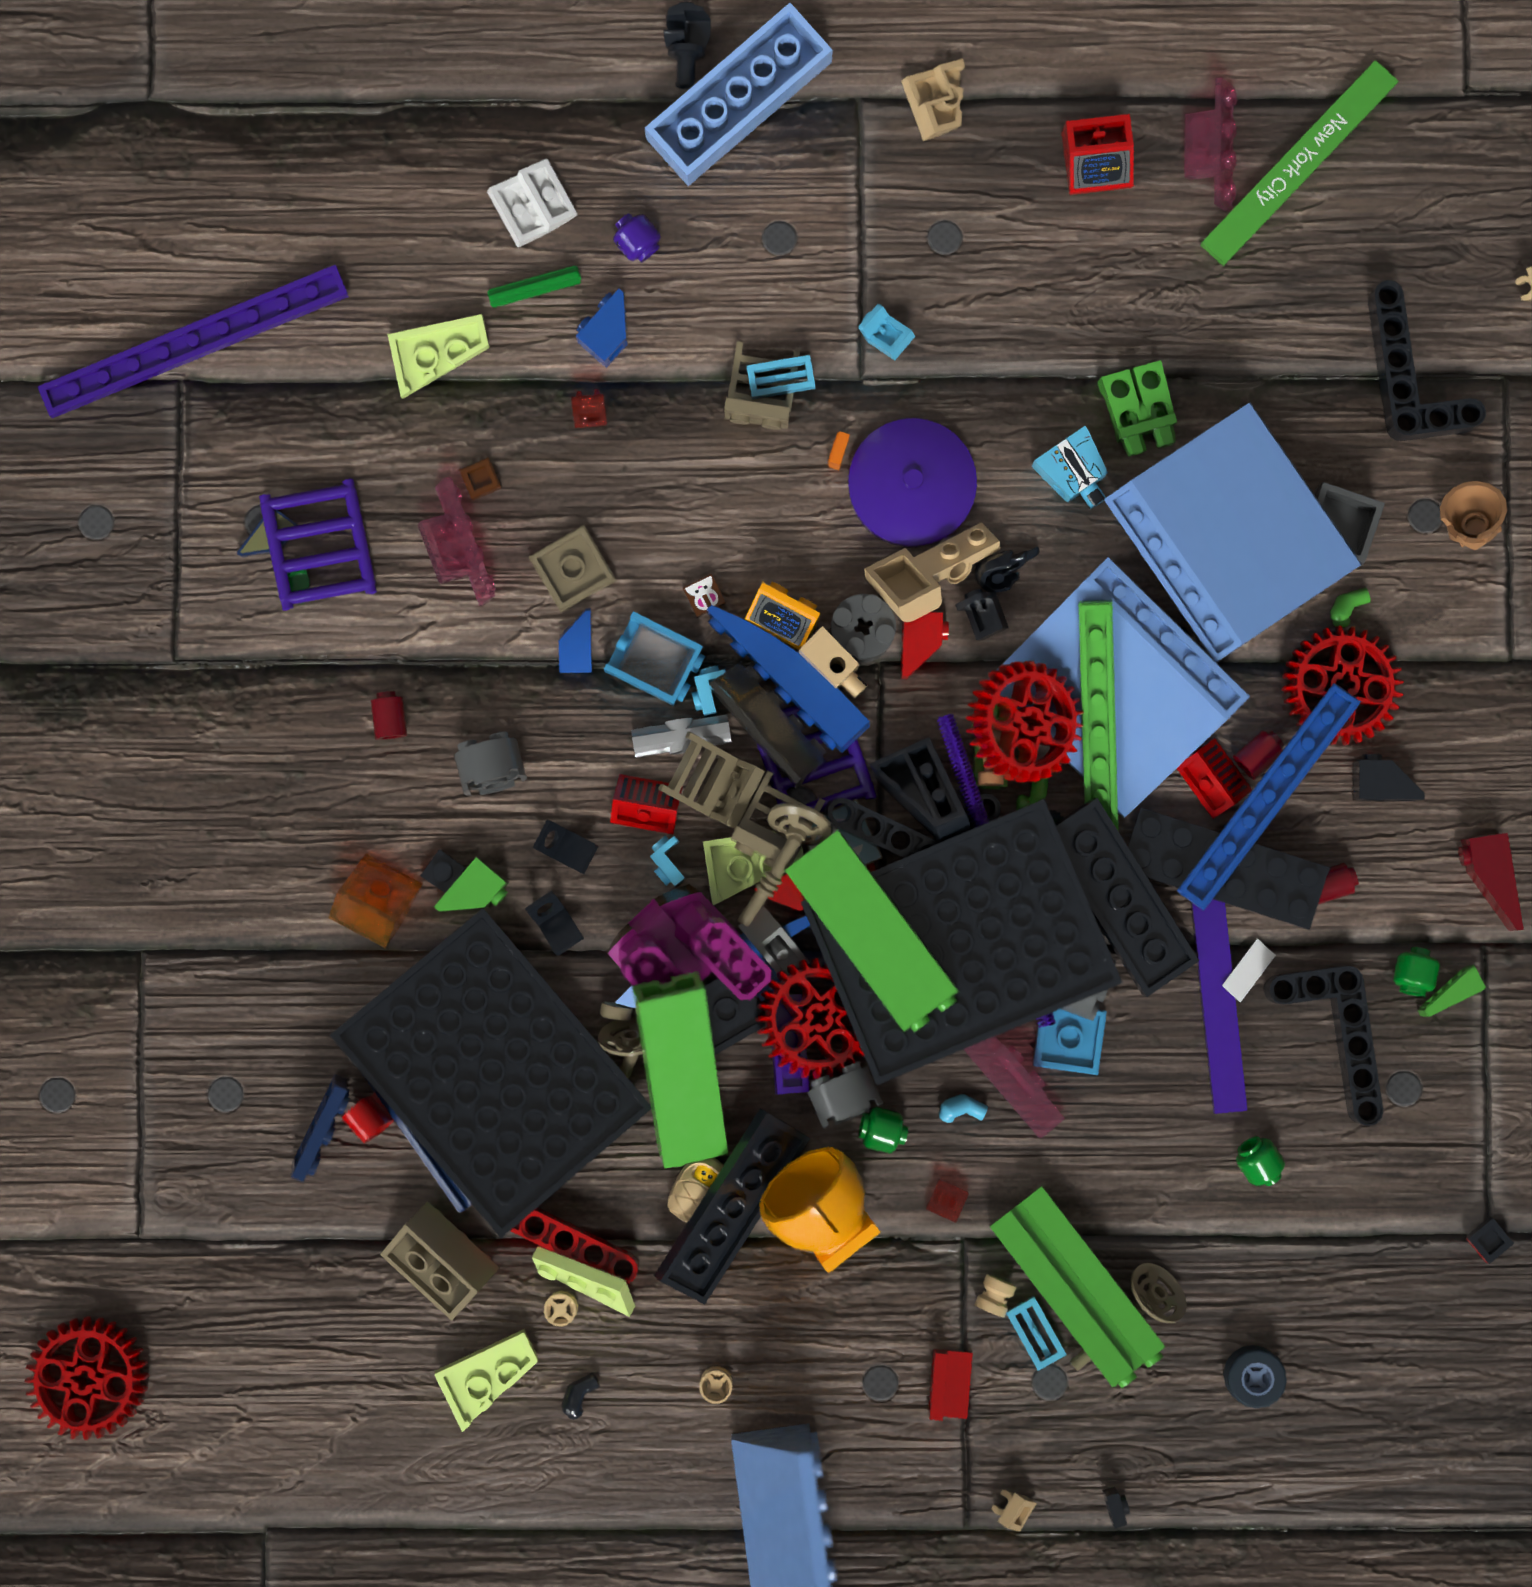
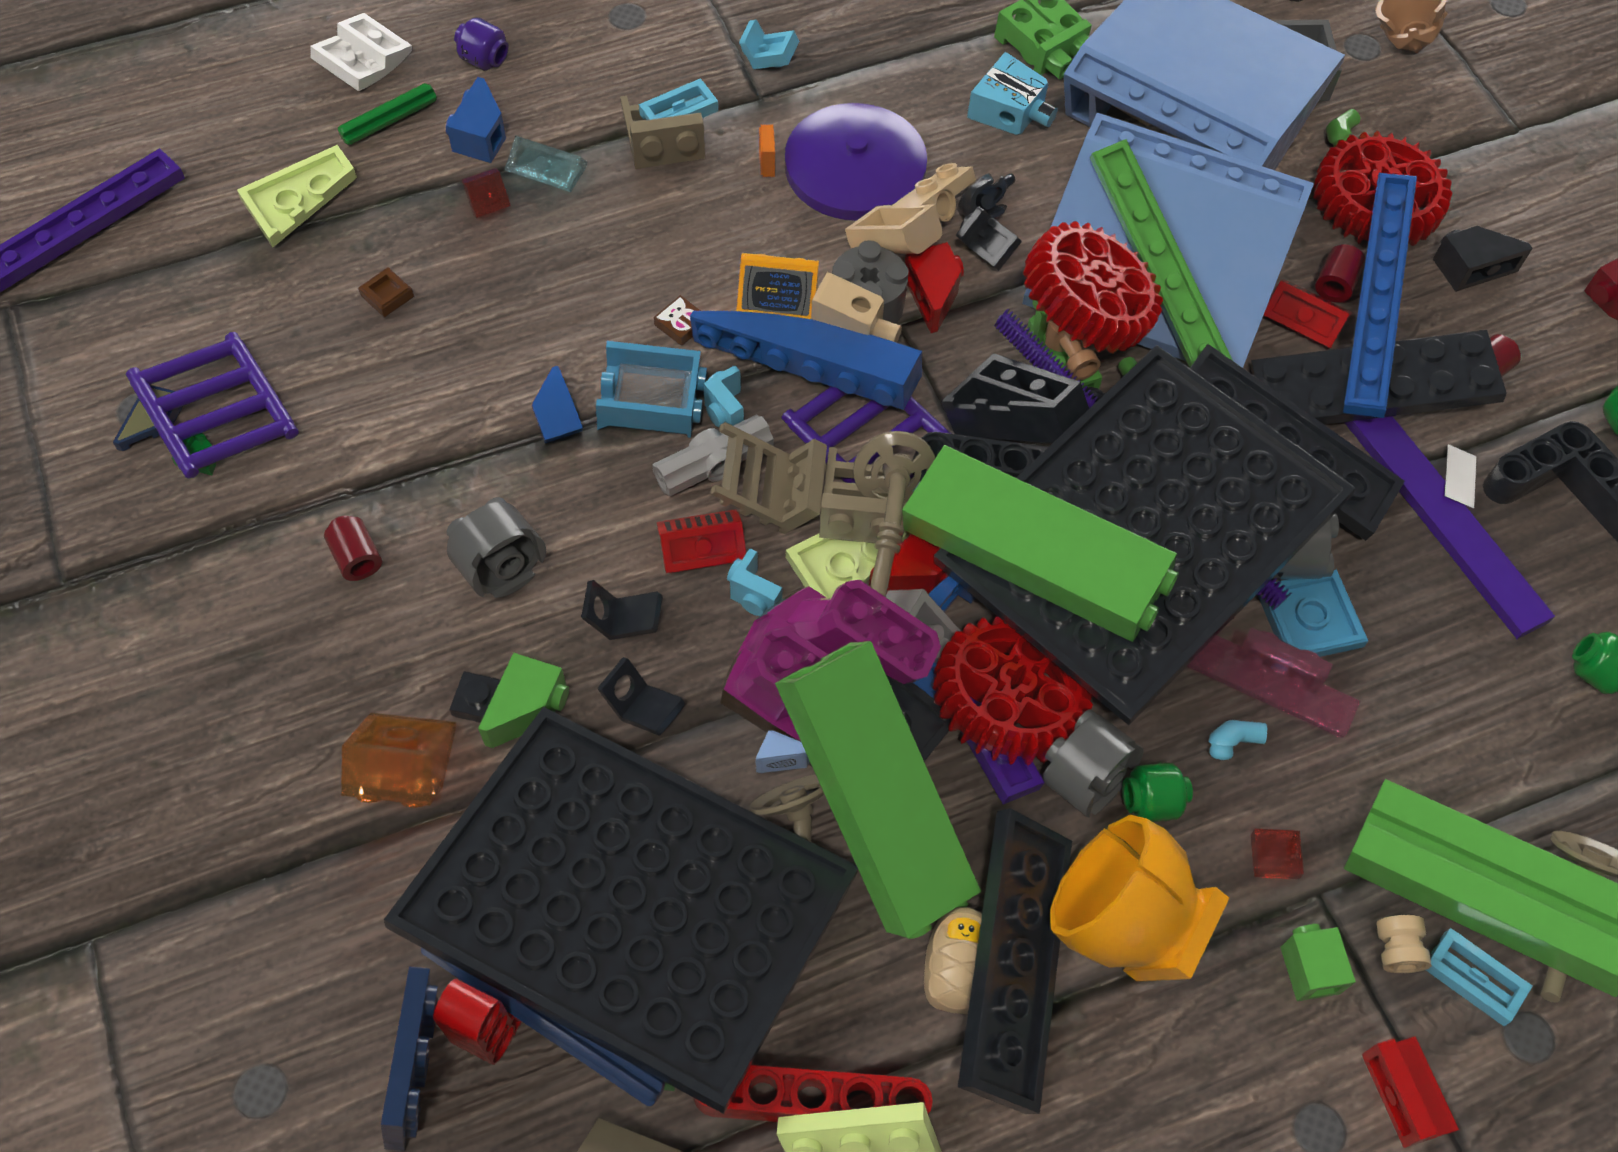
camera: 25 degrees left, 25 degrees down
(452, 544) = (378, 354): clear pink bracket -> none
(572, 568) = (522, 341): dark tan tile -> none
(616, 1011) = (760, 776): dark tan tile -> none
(650, 389) = (545, 164): none -> clear light blue slope
(767, 724) = (805, 401): clear smoke slope -> none
(930, 1284) = (1317, 962): none -> bright green brick

